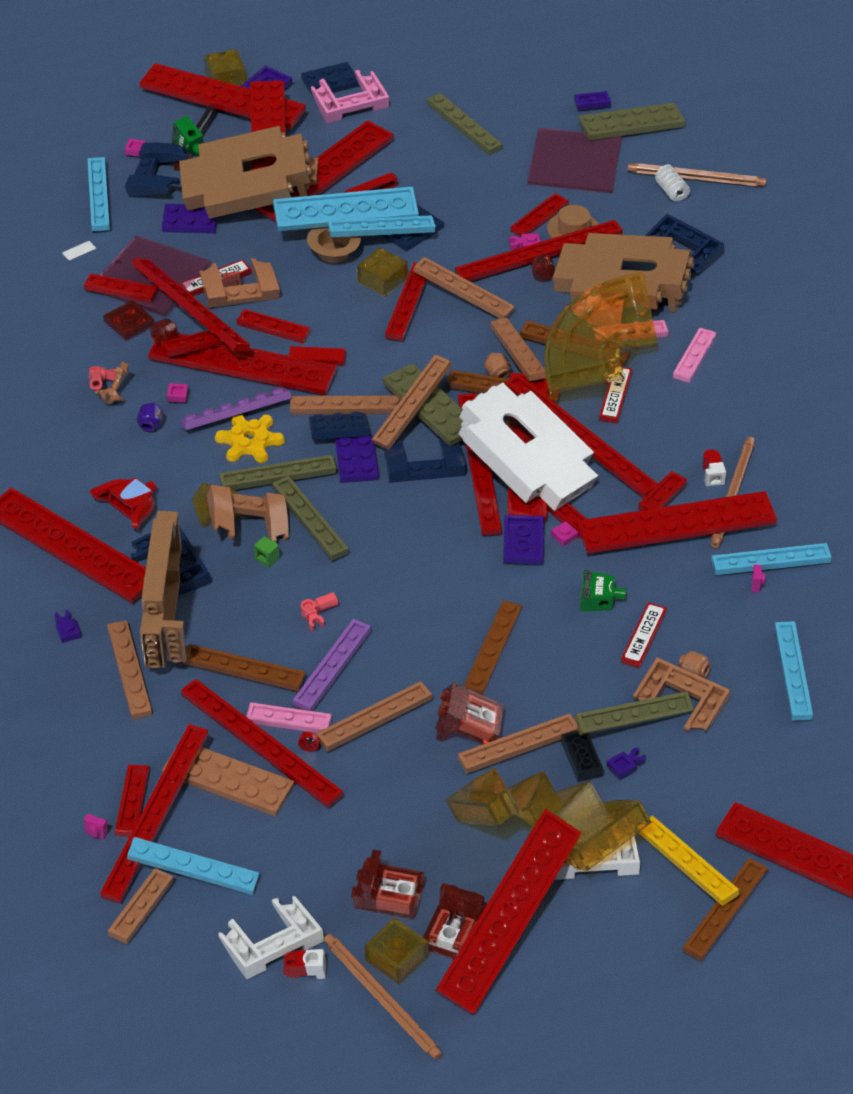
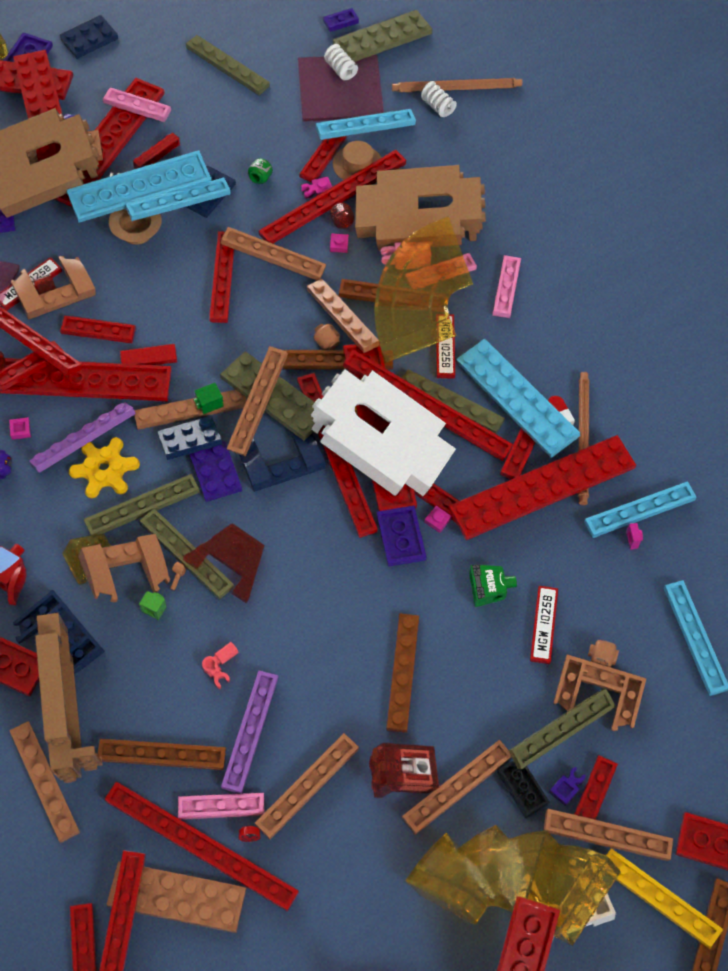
camera: 15 degrees left, 15 degrees up
(299, 530) = (180, 570): none -> nougat hand
(333, 108) = (99, 69): bright pink wedge -> none
(357, 522) = (236, 551): none -> clear red wing
(362, 142) = (137, 104): none -> bright pink tile
(365, 394) = (208, 398): none -> green brick
(382, 271) = (190, 248): clear yellow brick -> none
(470, 218) = (260, 171): none -> green head
(534, 292) = (339, 243): none -> dark pink plate
(580, 136) = (340, 62): none -> white piece
(590, 193) = (365, 124): none -> medium azure plate
(631, 453) = (459, 403): none -> olive plate
(650, 775) = (596, 788): none -> red tile
(654, 804) = (608, 835): none -> nougat plate
(674, 445) = (518, 398): none -> medium azure plate
(707, 248) = (449, 148): dark blue wedge -> none

